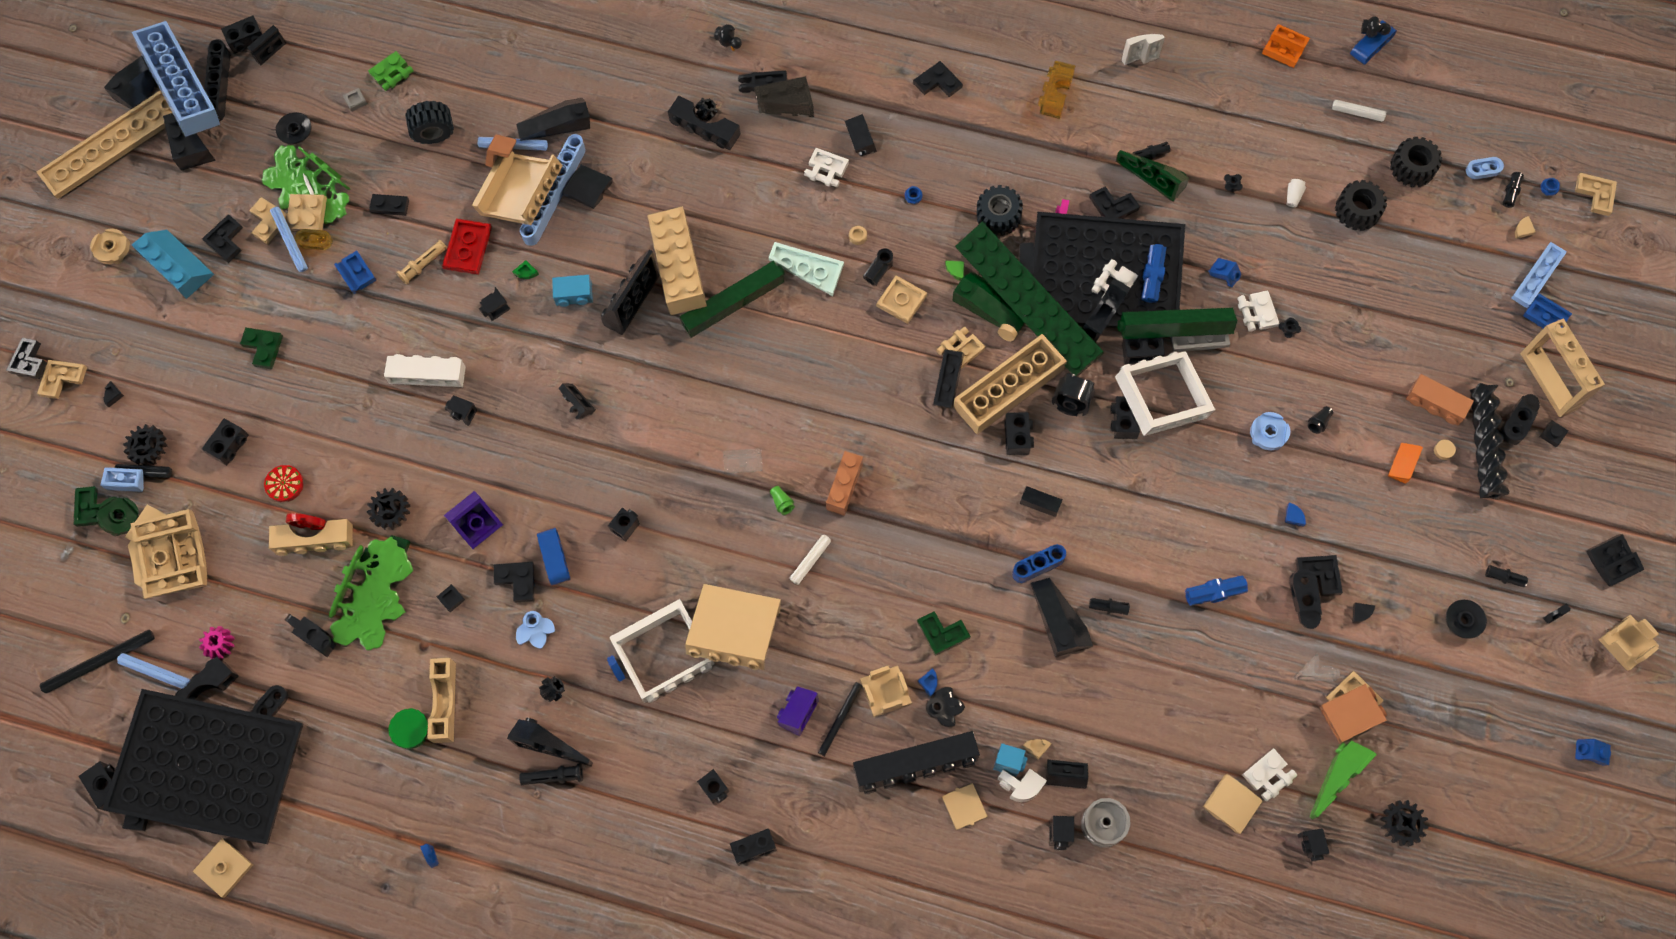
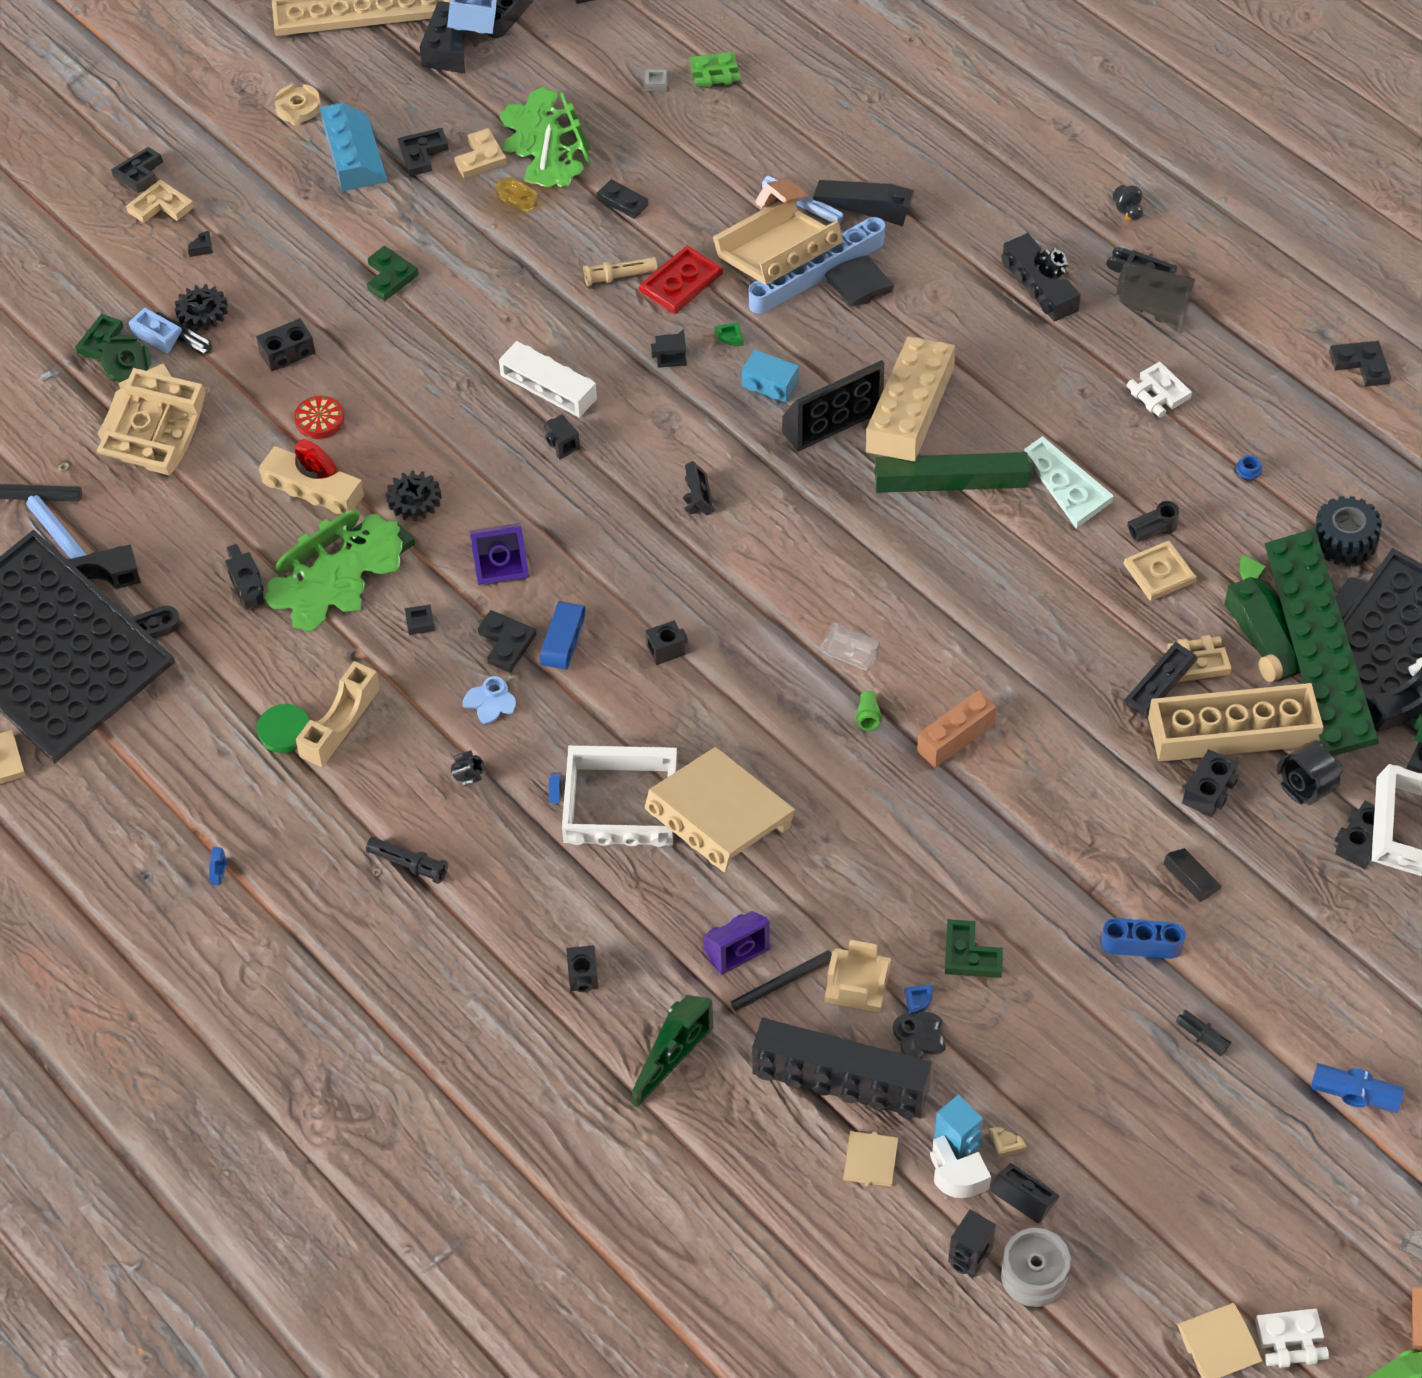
camera: 30 degrees right, 15 degrees down
(215, 635) = (141, 533): dark pink gear -> none
(288, 239) = (489, 181): light blue axle -> none
(290, 123) = (569, 76): black dish -> none
(306, 212) = (526, 163): tan plate -> none
(355, 272) = (539, 246): blue plate -> none
(429, 122) = (721, 133): black wheel -> none
(534, 737) = (415, 810): black wedge -> none
(753, 847) = (585, 1057): black brick -> none
(801, 792) = (681, 1032): none -> dark green wedge
(810, 559) = (861, 791): white axle -> none
(857, 235) = (1151, 479): tan tile -> none
(860, 135) = (1224, 374): black hinge -> none
(1062, 624) = (1130, 1021): black wedge -> none

